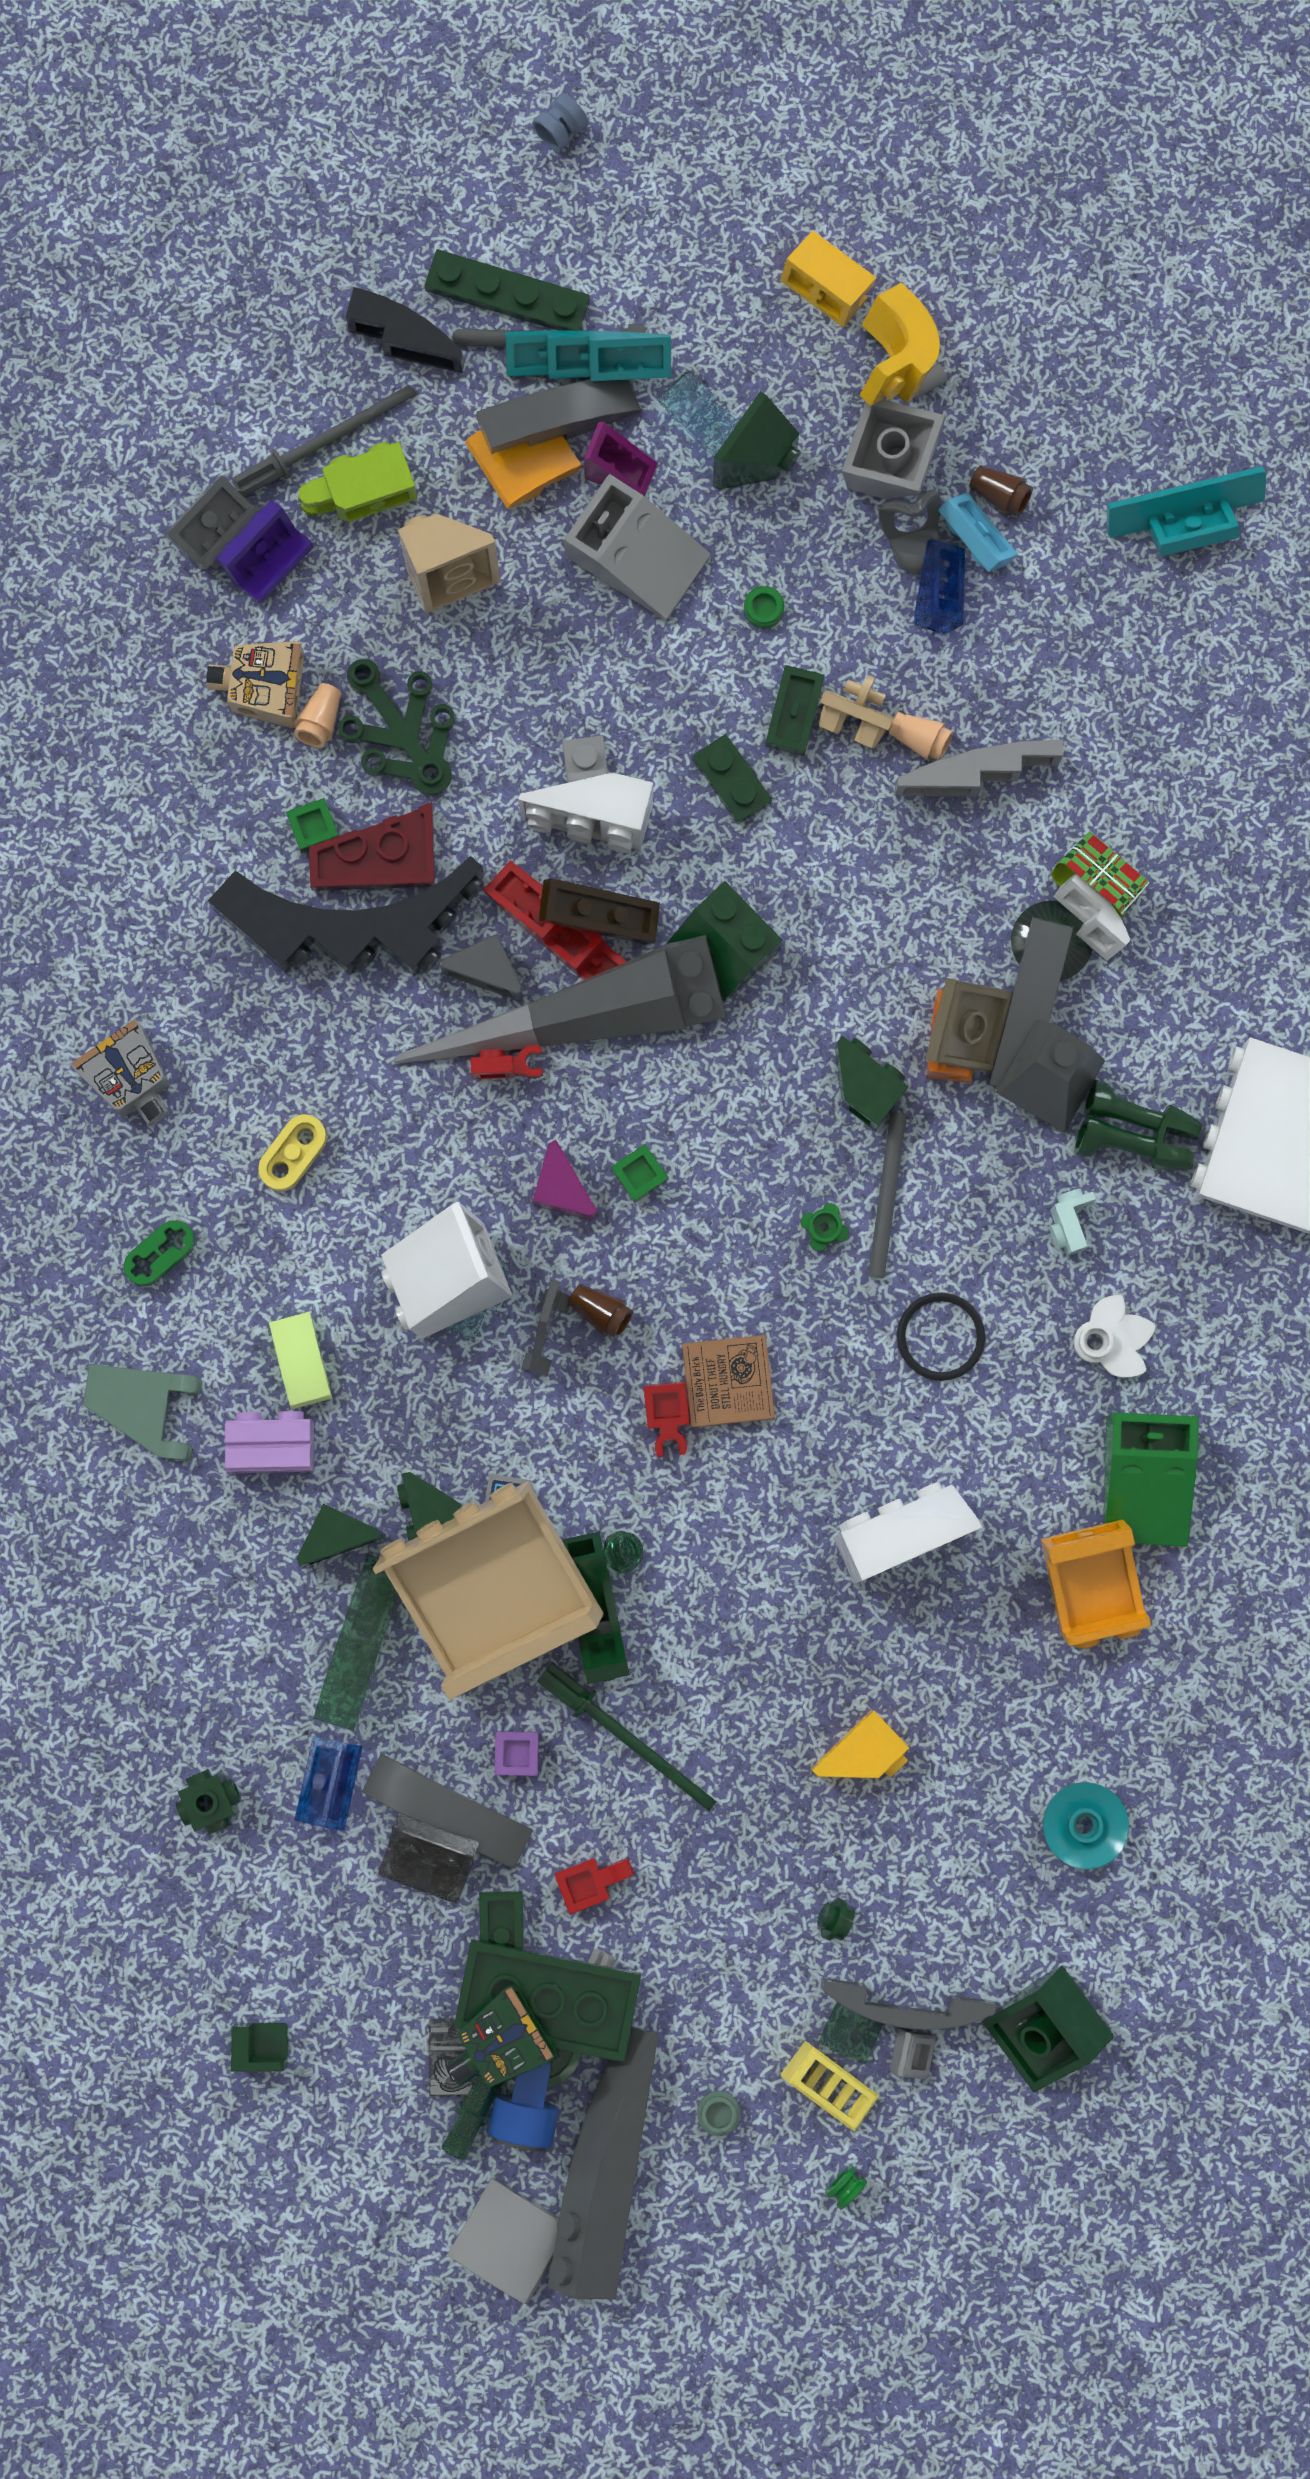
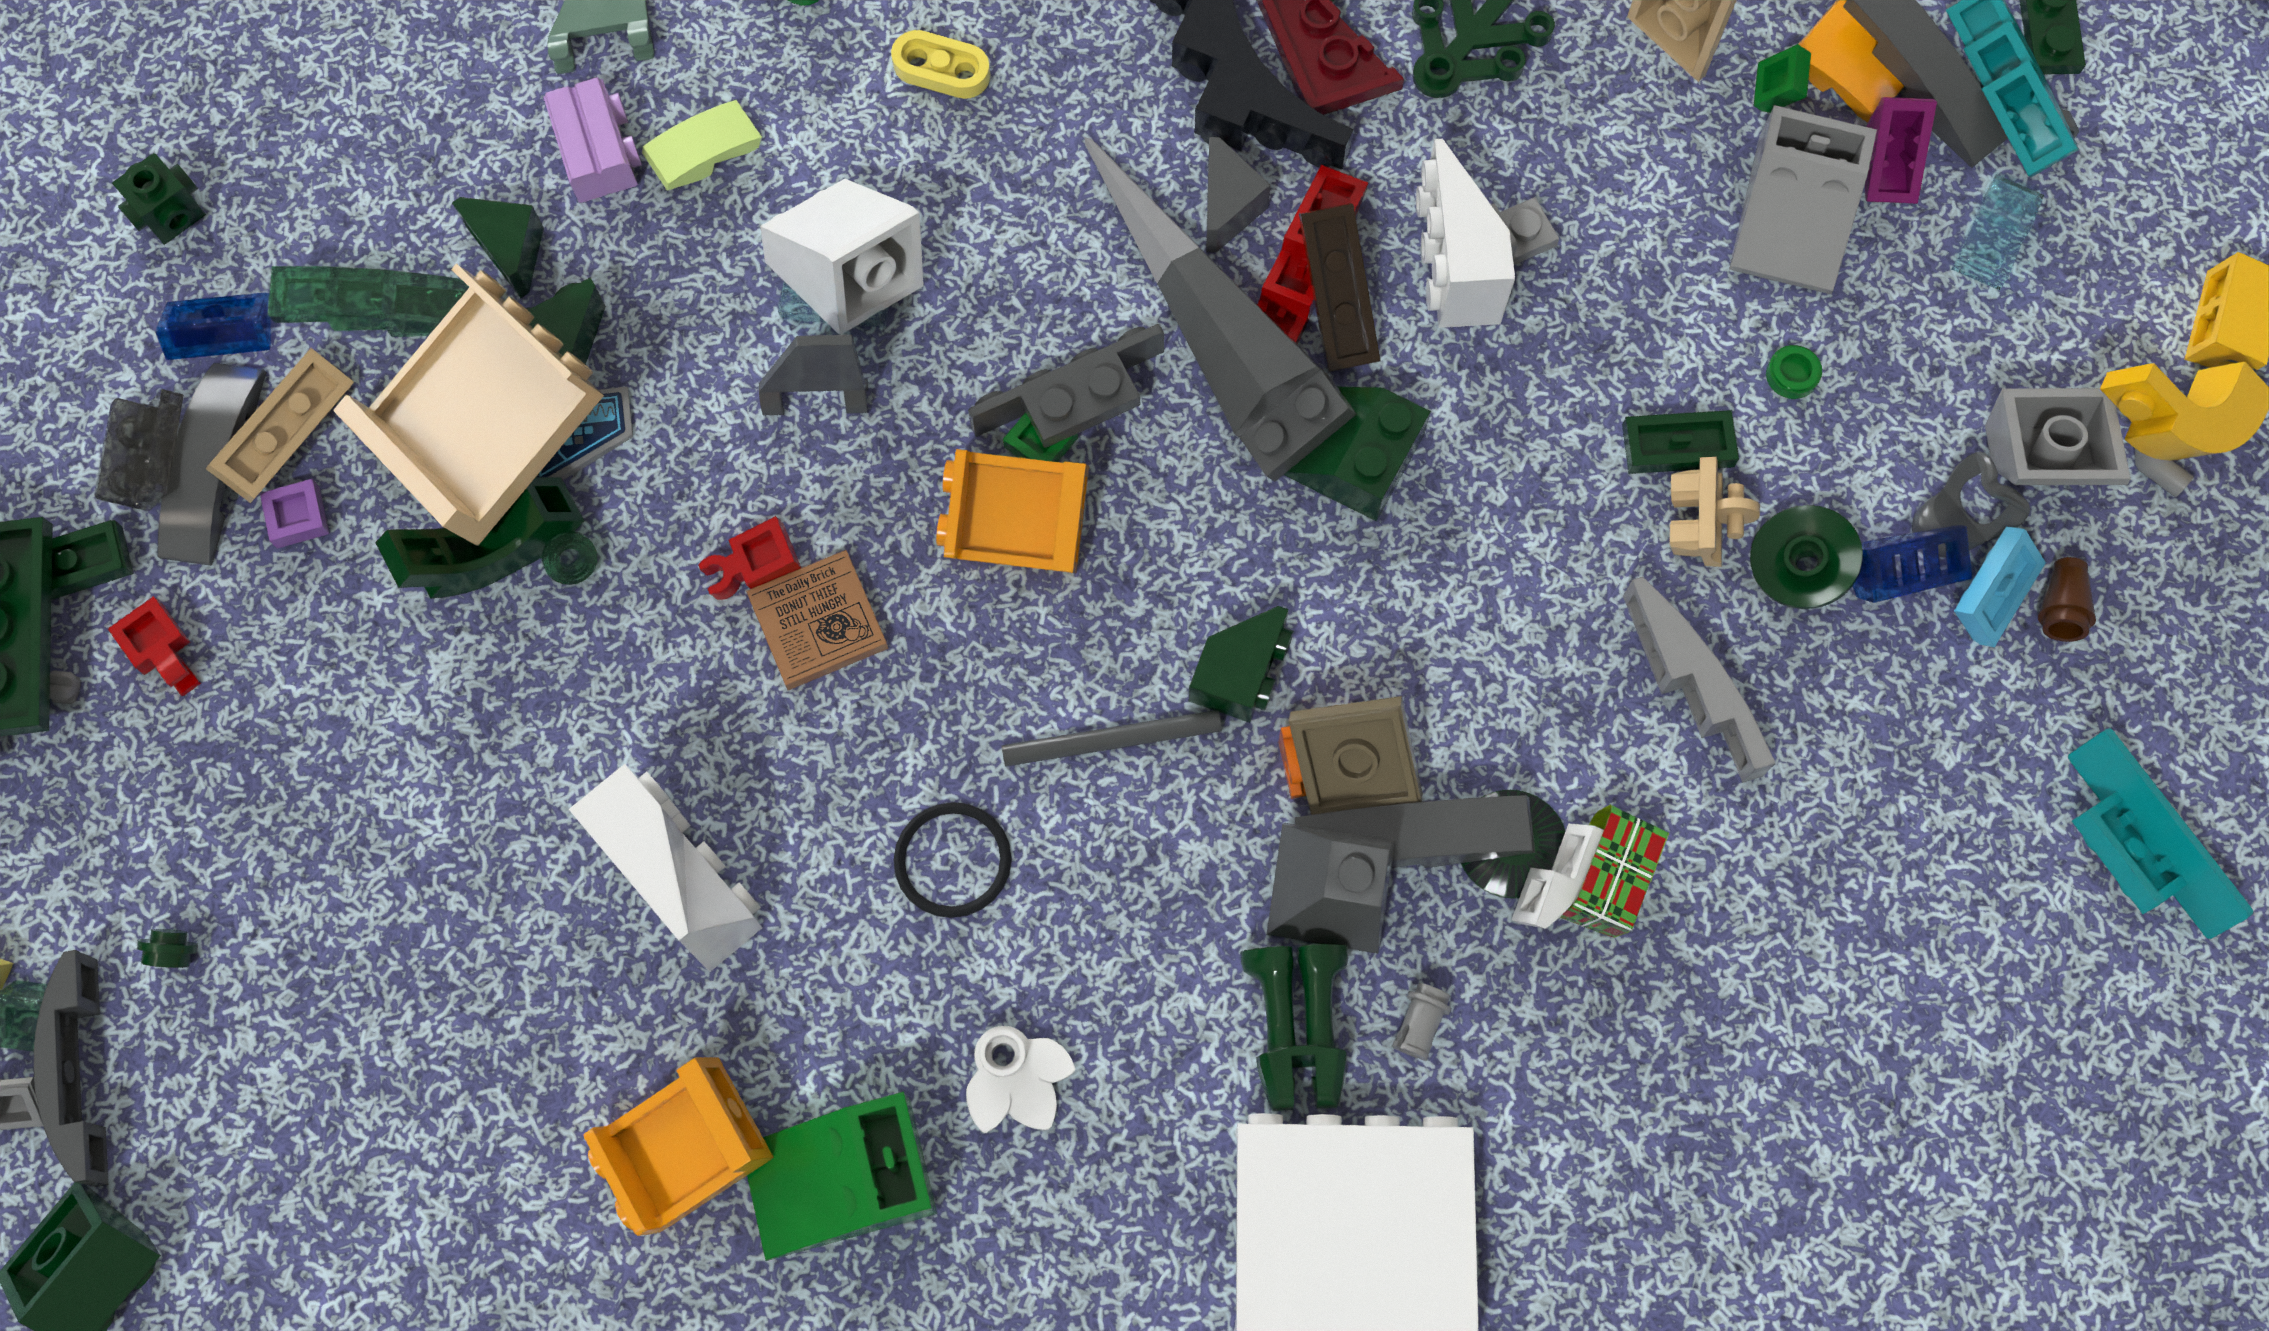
camera: 75 degrees right, 10 degrees down
(443, 1746) = (280, 425): none -> tan plate
(495, 1065) = (1116, 241): red plate -> none
(527, 521) = (1782, 78): none -> green plate
(560, 1187) = (997, 351): magenta slope -> none
(579, 1700) = (373, 569): dark green piece -> none
(604, 1312) = (858, 447): reddish brown cone -> none
(619, 1132) = (1075, 395): none -> dark grey bracket
(696, 1207) = (1013, 511): none -> light orange panel
(731, 779) = (1565, 399): dark green plate -> none
(756, 447) = (1986, 286): dark green slope -> none
(829, 1216) = (1045, 658): green plate -> none
(864, 1751) = (387, 919): yellow slope -> none
(891, 657) = (1800, 534): none -> dark green dish
(922, 735) = (1711, 599): light nougat cone -> none
(1067, 1230) = (1137, 969): light aqua bracket -> none
(1107, 1832) = (327, 1230): teal dish -> none
(1160, 1047) = (1422, 1021): none -> light grey pin

